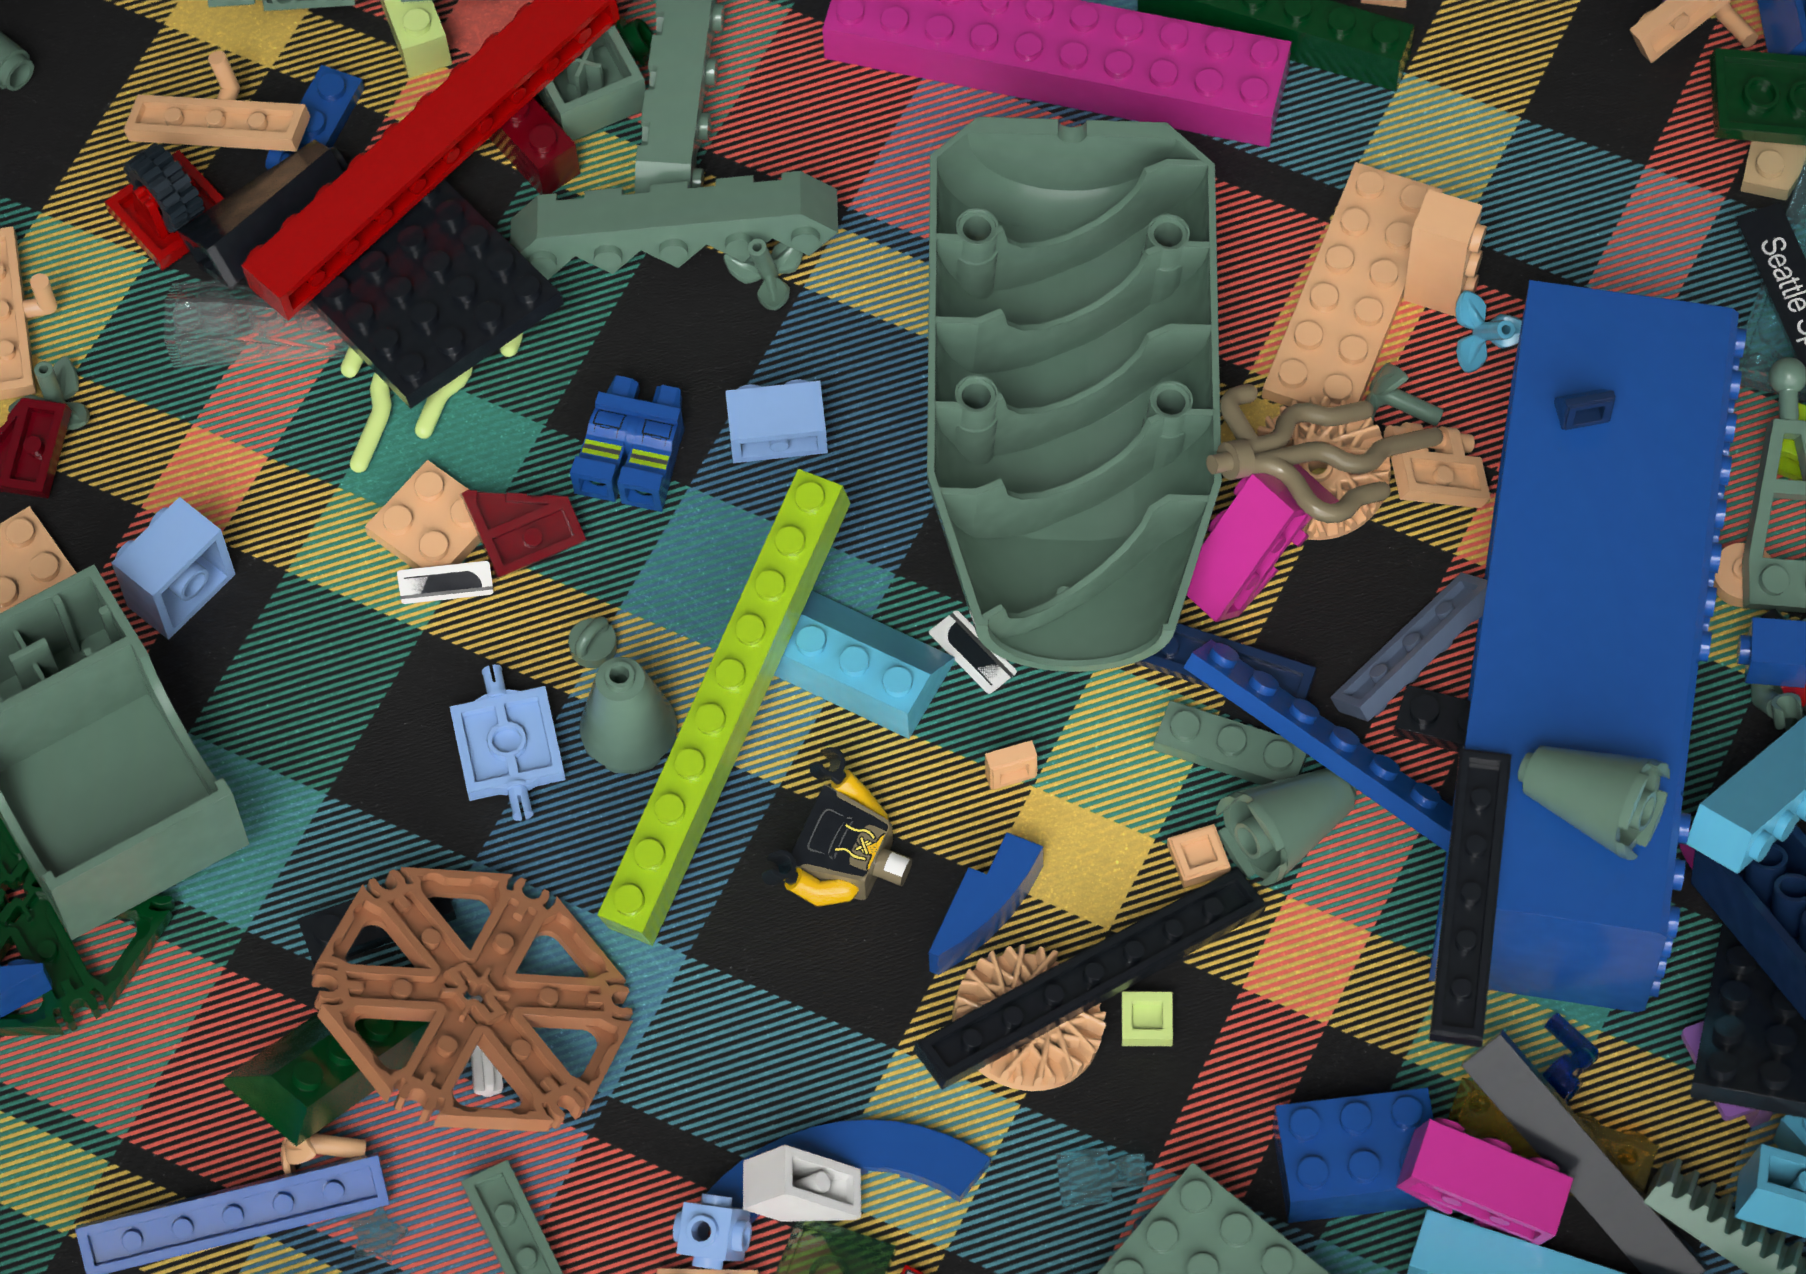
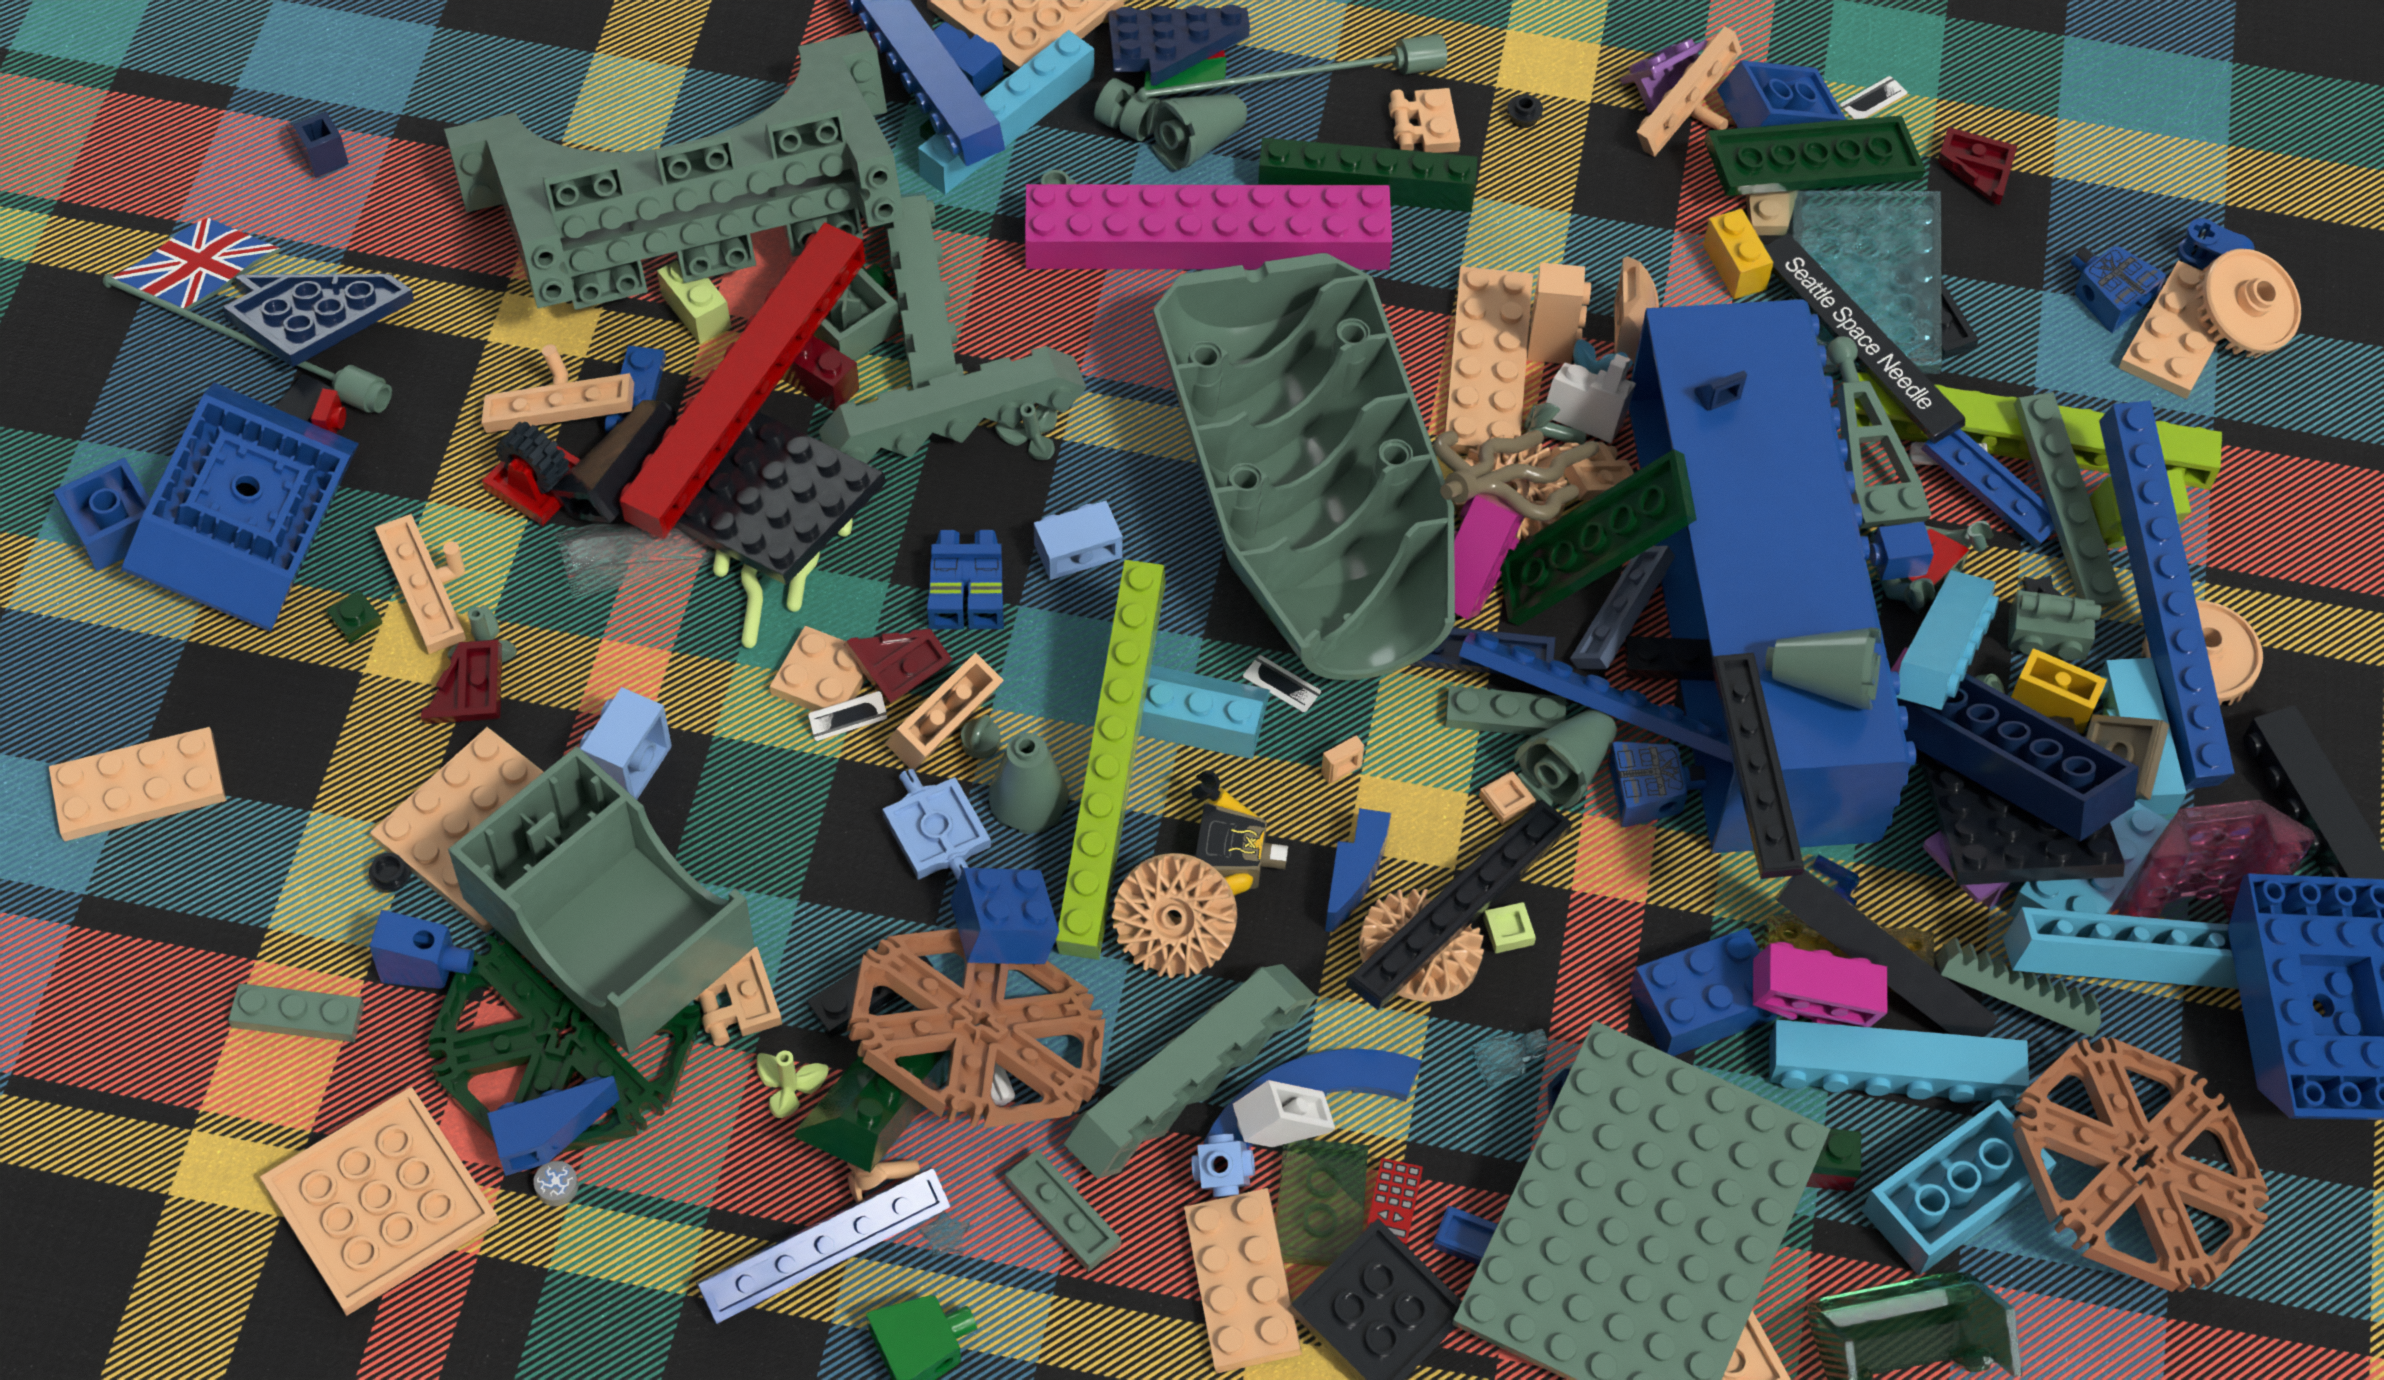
camera: 20 degrees left, 5 degrees down
(234, 901) = (750, 998): none -> light nougat plate
(241, 998) = (780, 1072): none -> yellowish green plant
(547, 871) = (1004, 916): none -> blue brick
(554, 603) = (944, 711): none -> light nougat brick
(710, 1104) = (1187, 1069): none -> sand green brick
(745, 915) = (1165, 940): none -> light nougat wheel
(1378, 875) = (1650, 781): none -> blue torso
(1390, 557) = (1597, 537): none -> dark green plate
(1459, 373) = (1593, 401): none -> white hinge
(1554, 254) = (1633, 295): none -> light nougat slope
(1709, 215) = (1738, 254): none -> yellow brick

